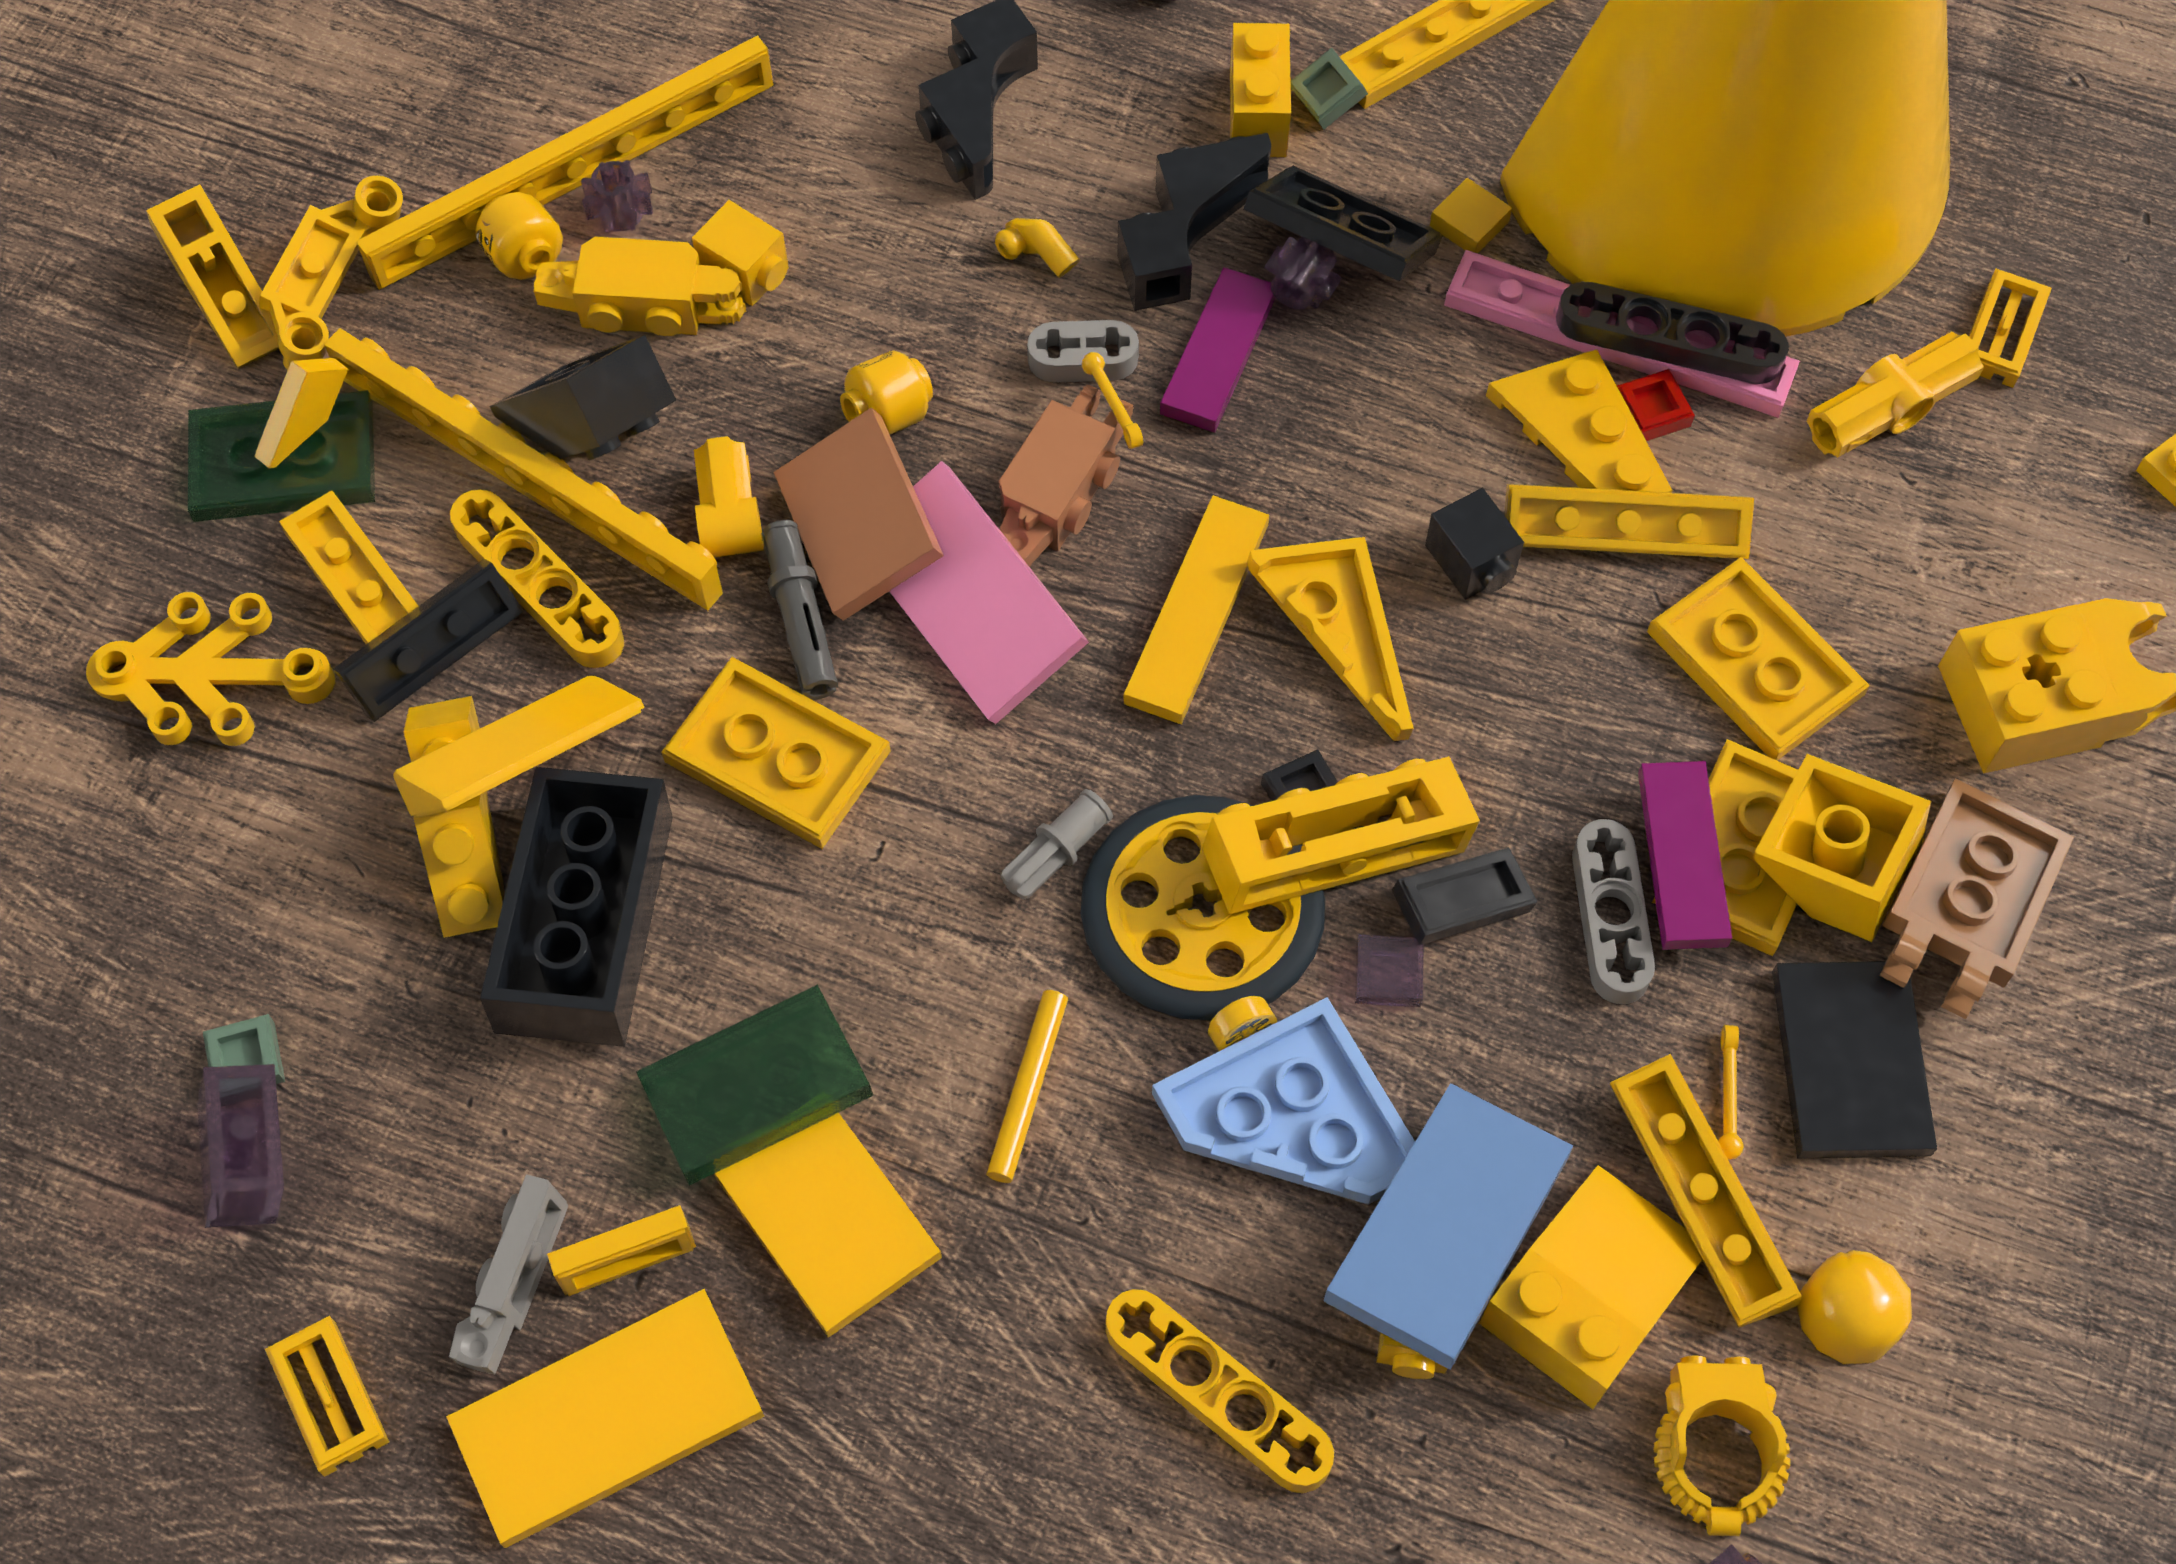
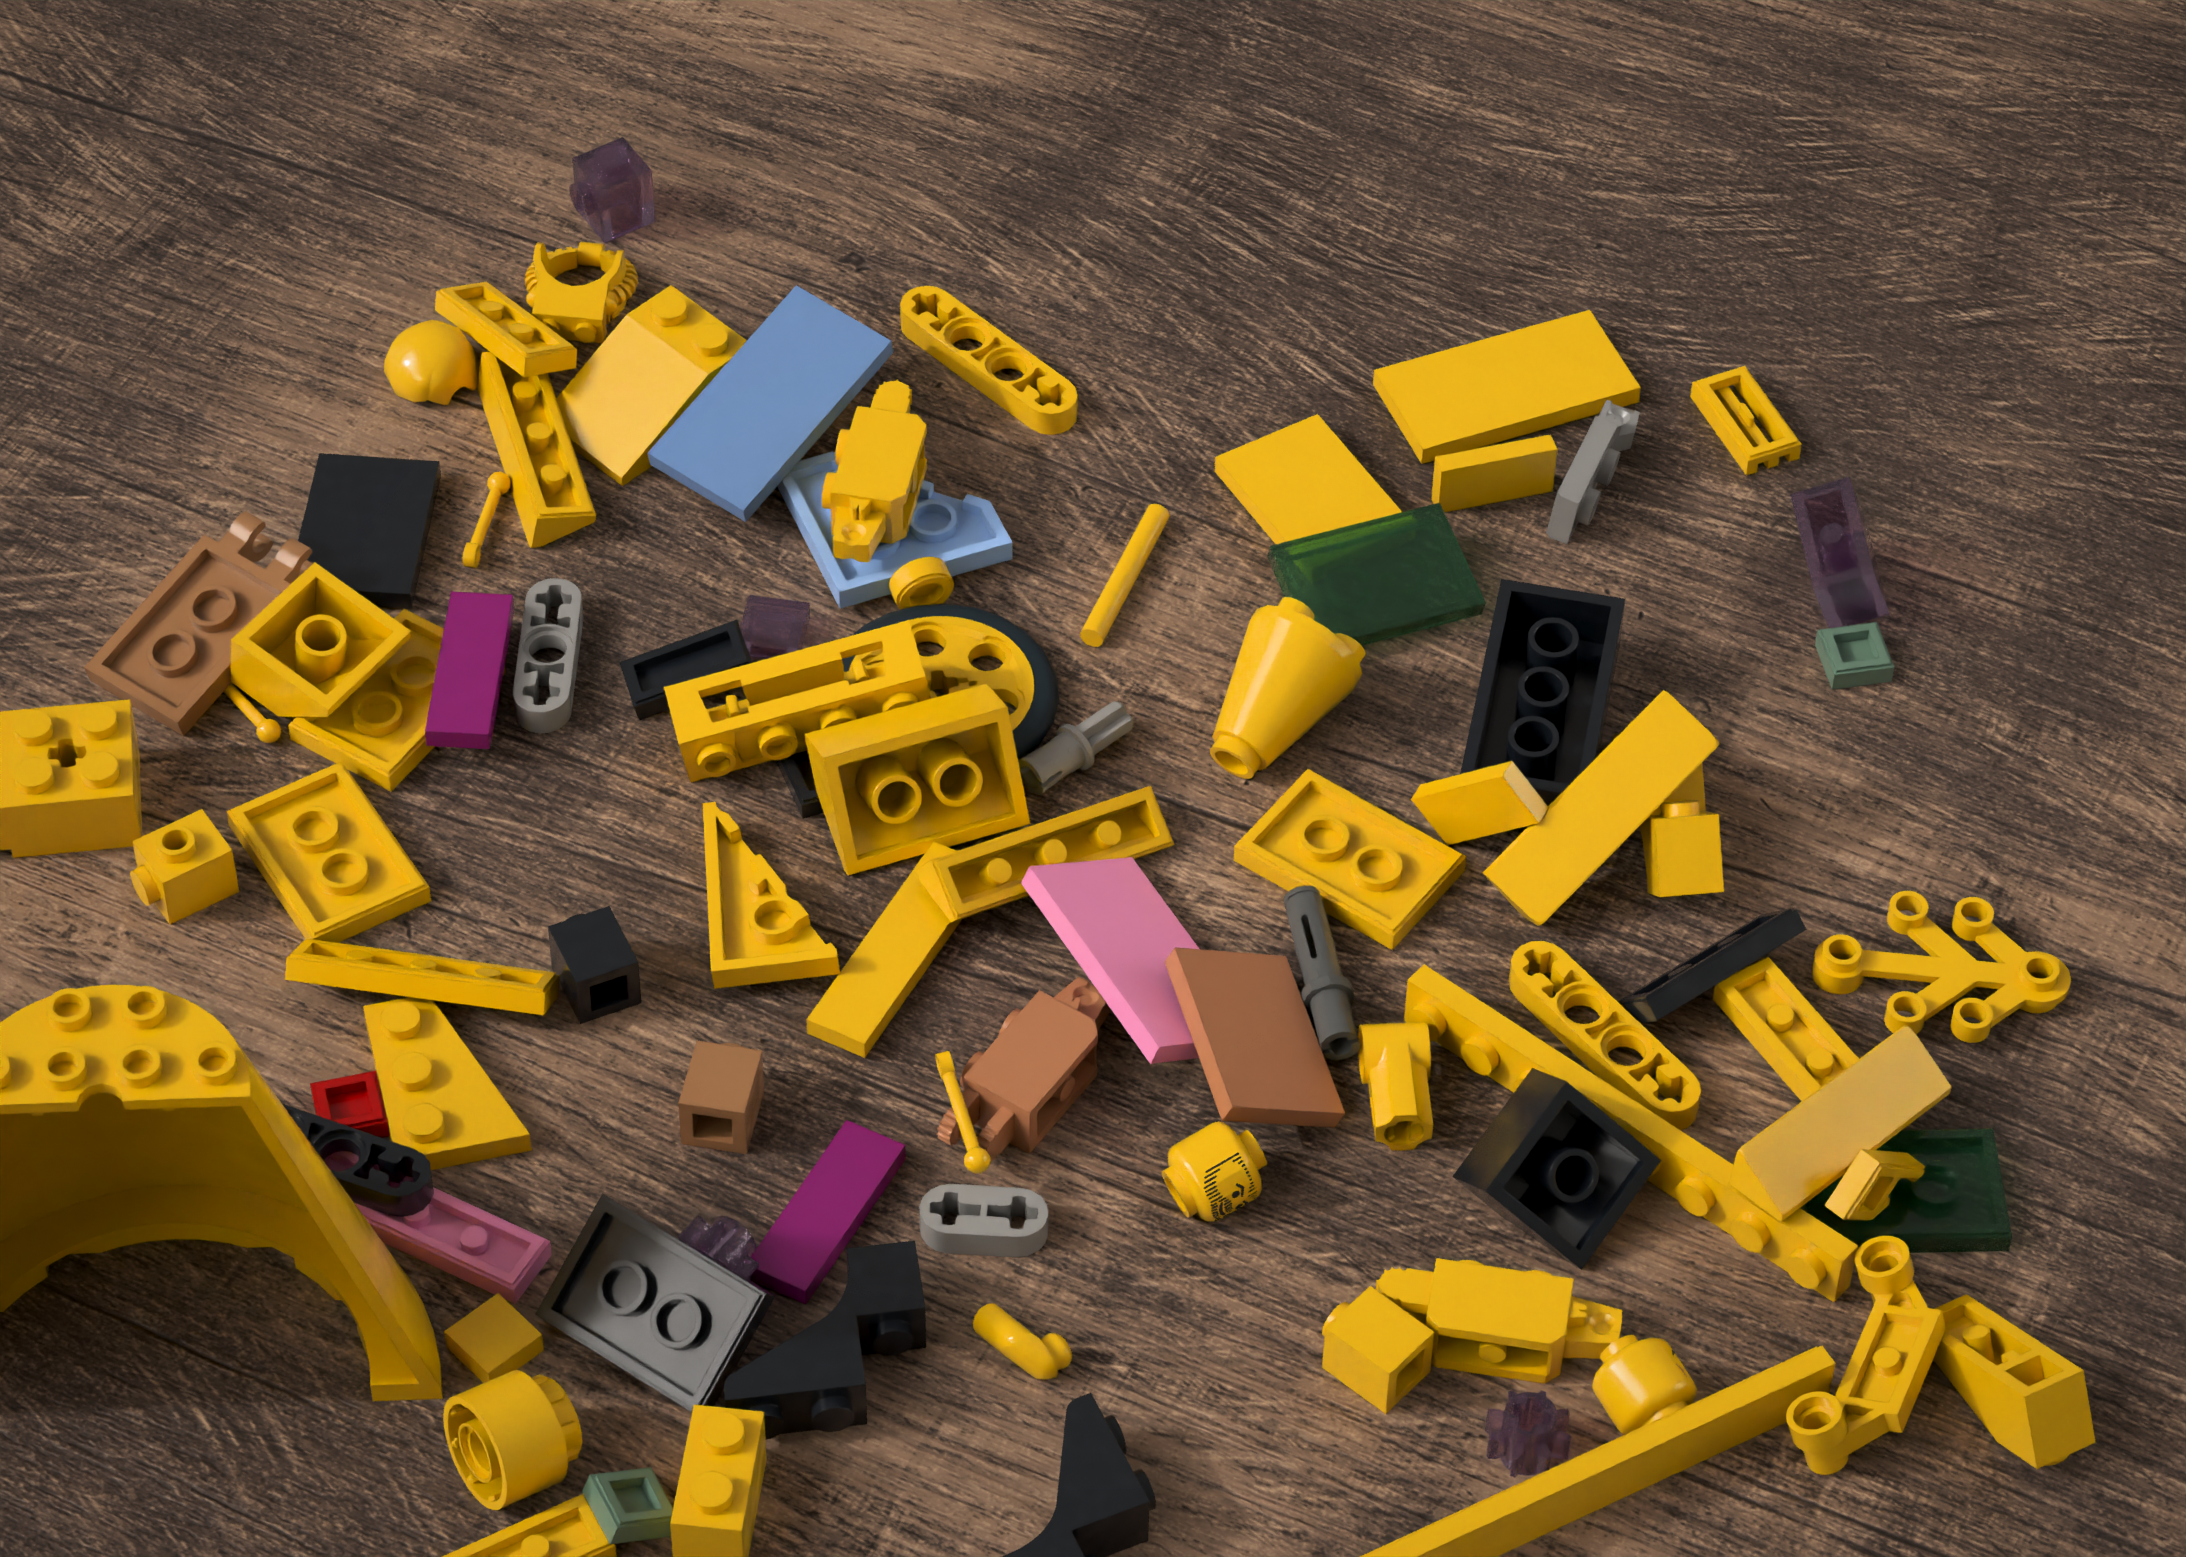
camera: 175 degrees left, 15 degrees down
(325, 450) = (1829, 1128): none -> yellow slope
(638, 754) = (1480, 803): none -> yellow tile
(846, 907) = (1282, 685): none -> yellow cone
(1072, 708) = (993, 870): none -> yellow slope
(1212, 761) = (918, 777): none -> yellow slope
(1309, 1124) = (876, 474): none -> yellow hinge
(1329, 425) = (721, 1097): none -> medium nougat brick
(1432, 107) = (512, 1437): none -> yellow piece
(1786, 1340) = (505, 329): none -> yellow tile
(1884, 609) = (184, 867): none -> yellow brick

